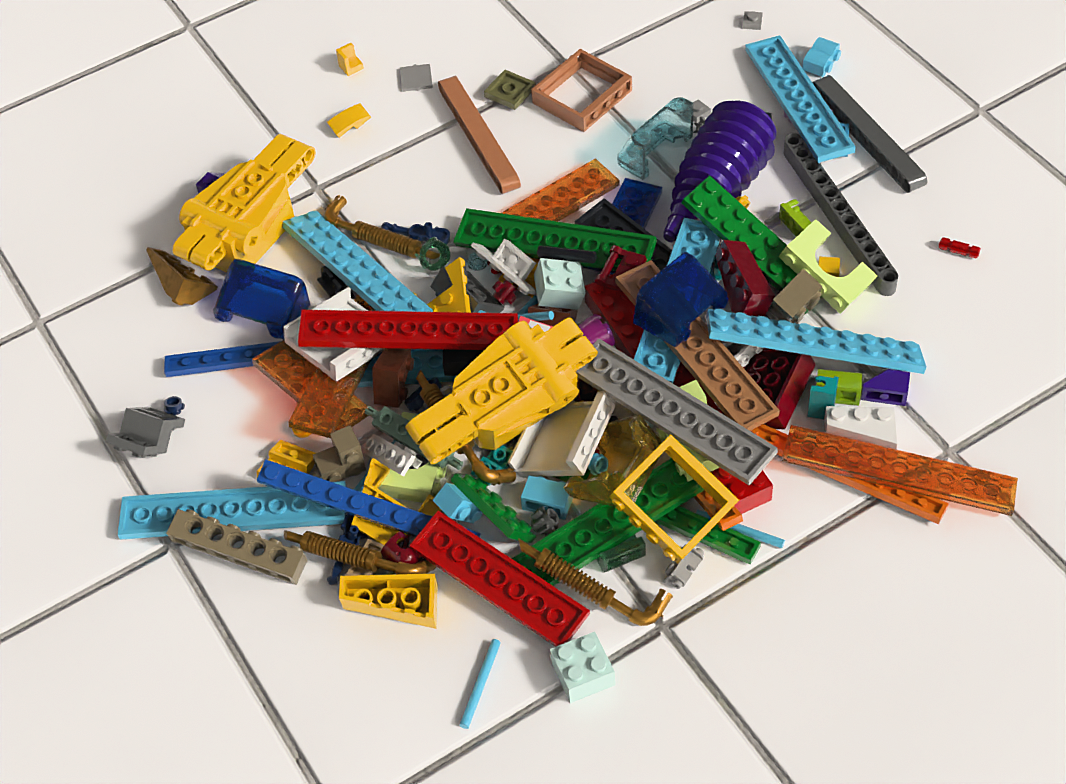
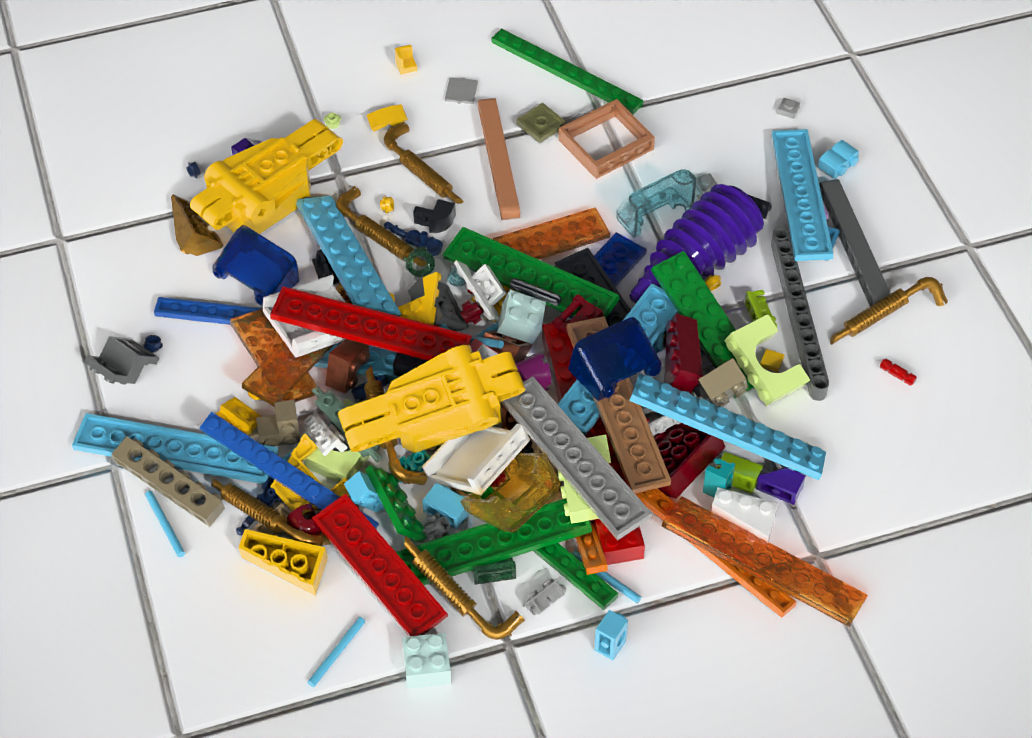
camera: 10 degrees right, 0 degrees up
(161, 218) = (193, 169): none -> dark blue plate
(246, 593) = (165, 524): none -> medium azure bar
(293, 133) = (332, 120): none -> yellowish green plate
(378, 205) = (387, 204): none -> yellow plate
(398, 160) = (418, 166): none -> pearl gold piece
(435, 208) = (437, 219): none -> black brick
(514, 33) = (565, 70): none -> green plate
(598, 464) = (501, 490): medium azure plate -> none
(698, 473) = (577, 517): yellow window -> none
(771, 587) = (611, 634): none -> medium azure brick
(926, 185) = (888, 306): none -> pearl gold piece

